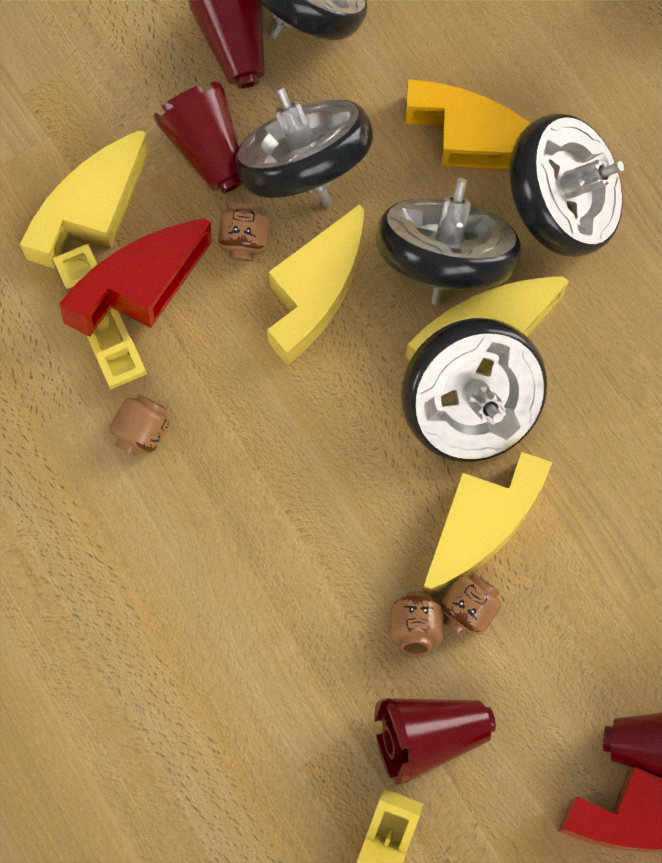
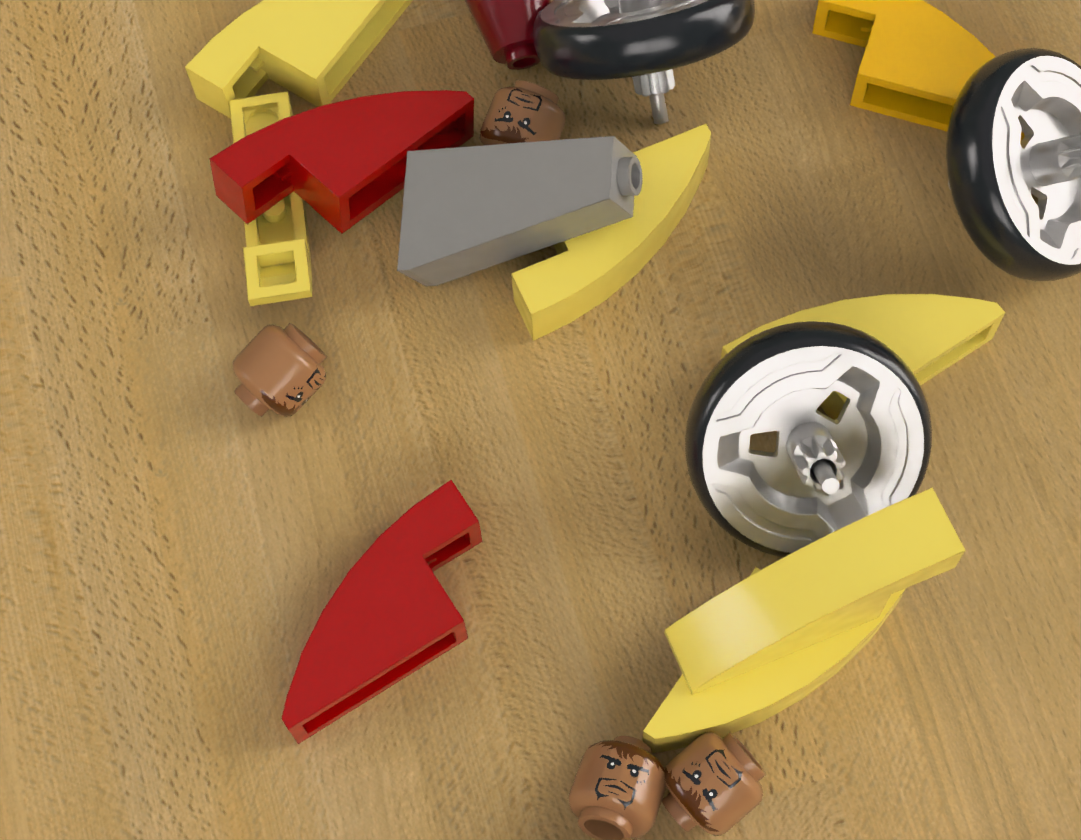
camera: 20 degrees right, 5 degrees down
(251, 285) = (508, 200): none -> light grey slope
(251, 556) = (384, 615): none -> red slope
(448, 243) = (827, 209): wheel -> none
(502, 481) = (815, 591): none -> light yellow slope

